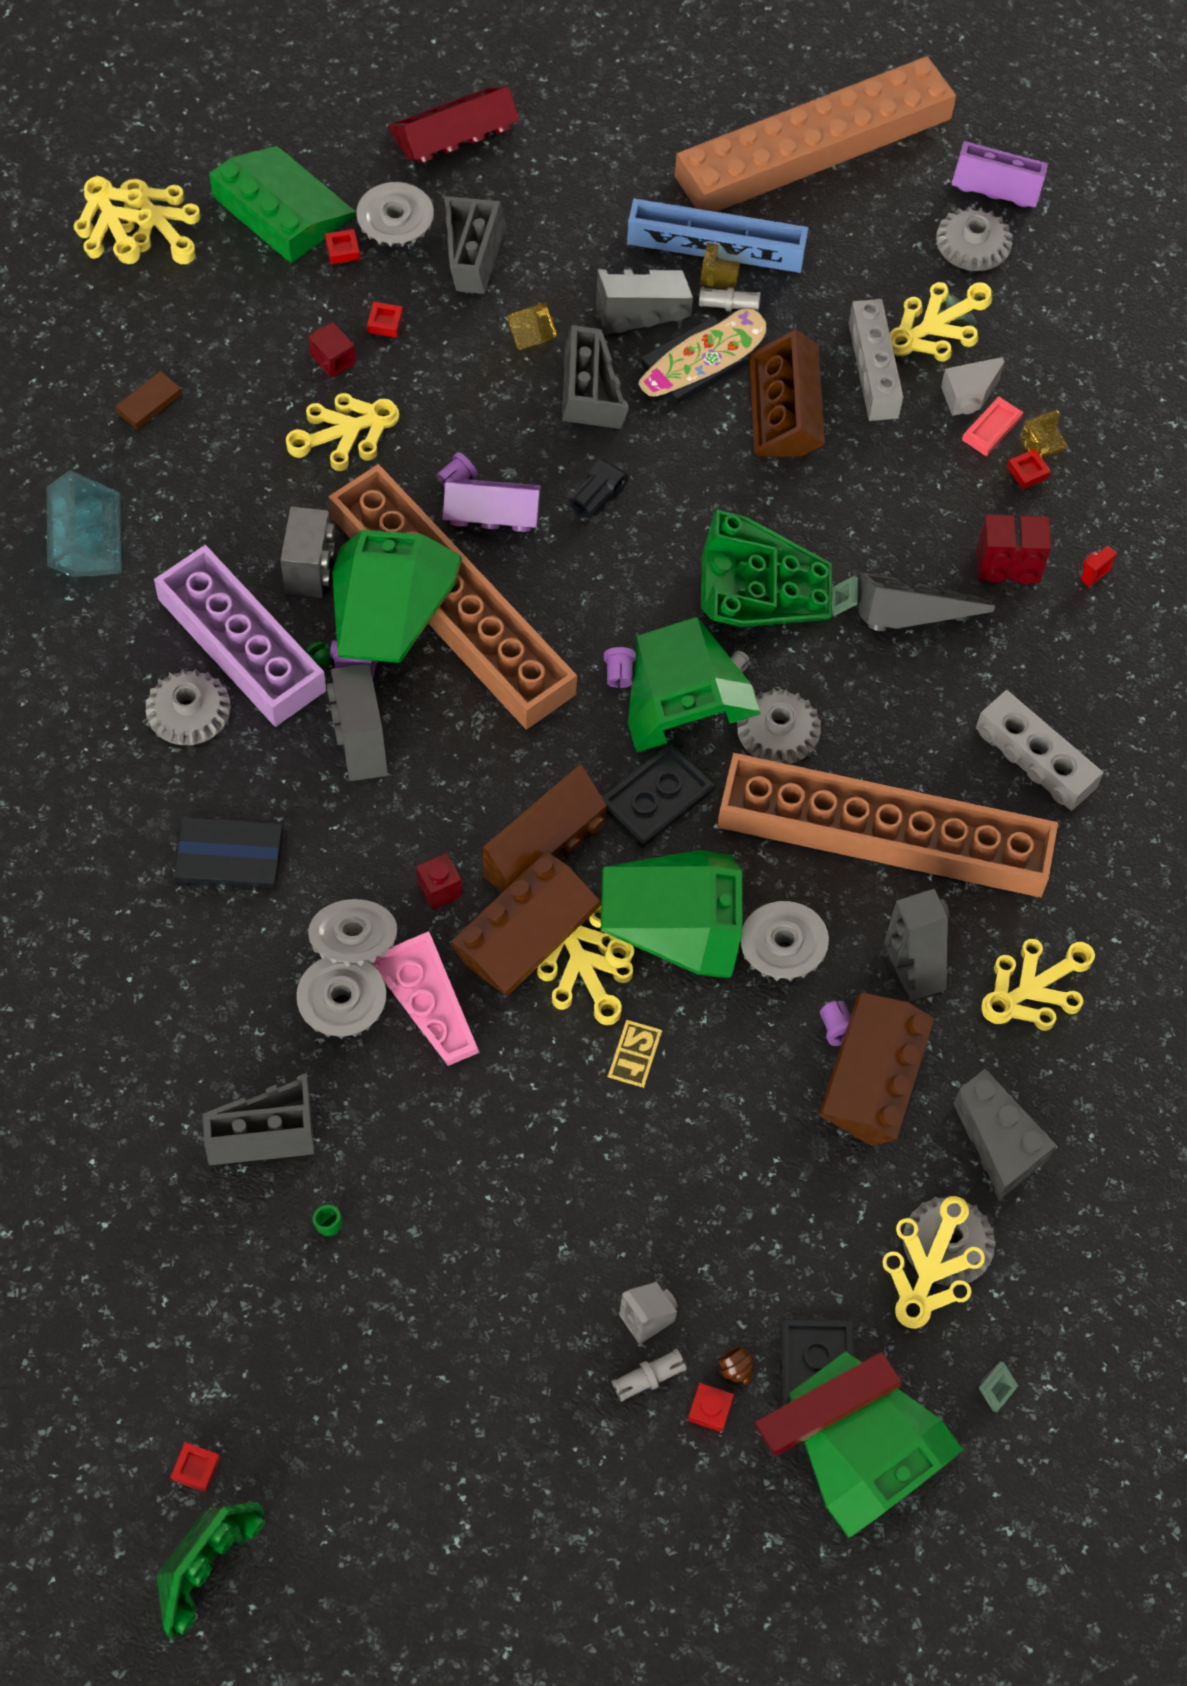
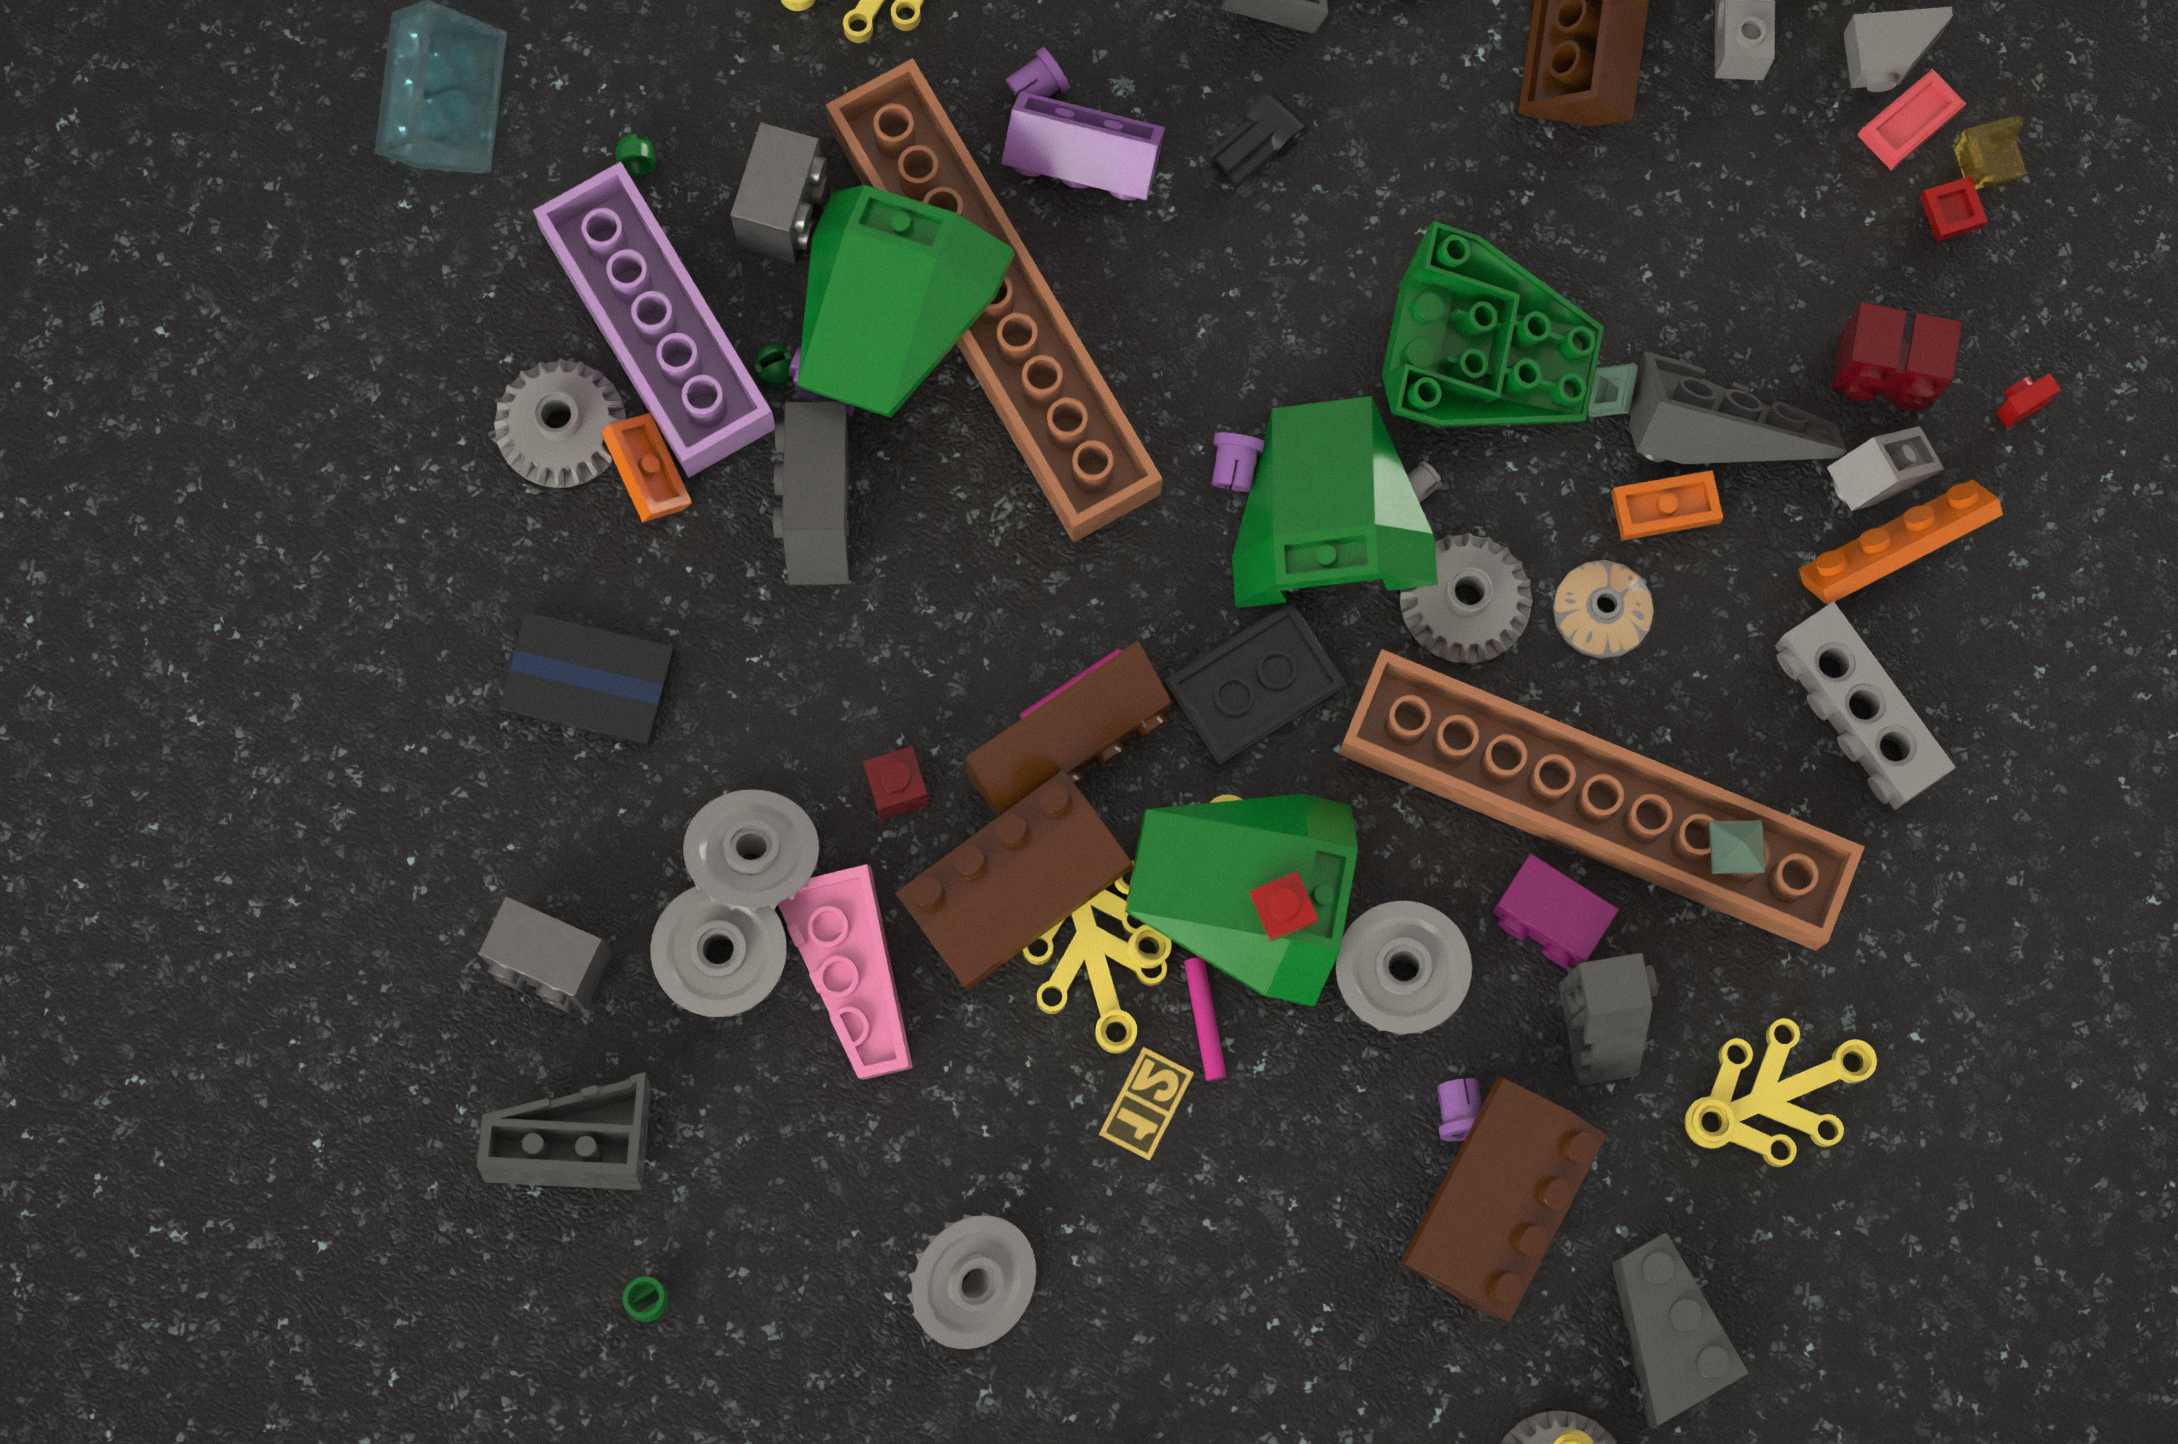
camera: 10 degrees right, 15 degrees up
(215, 544) = (636, 154): none -> green hinge
(229, 1013) = (546, 954): none -> flat silver brick
(247, 722) = (646, 467): none -> orange plate
(558, 1165) = (993, 1294): none -> light grey gear
(663, 995) = (1205, 1019): none -> dark pink piece
(702, 907) = (1283, 906): none -> red plate
(861, 732) = (1589, 628): none -> tan dish
(870, 894) = (1554, 912): none -> magenta brick
(892, 655) = (1667, 505): none -> orange plate
(979, 832) = (1736, 847): none -> sand green slope
(1019, 615) = (1884, 467): none -> light grey slope
(1033, 658) = (1900, 541): none -> orange plate

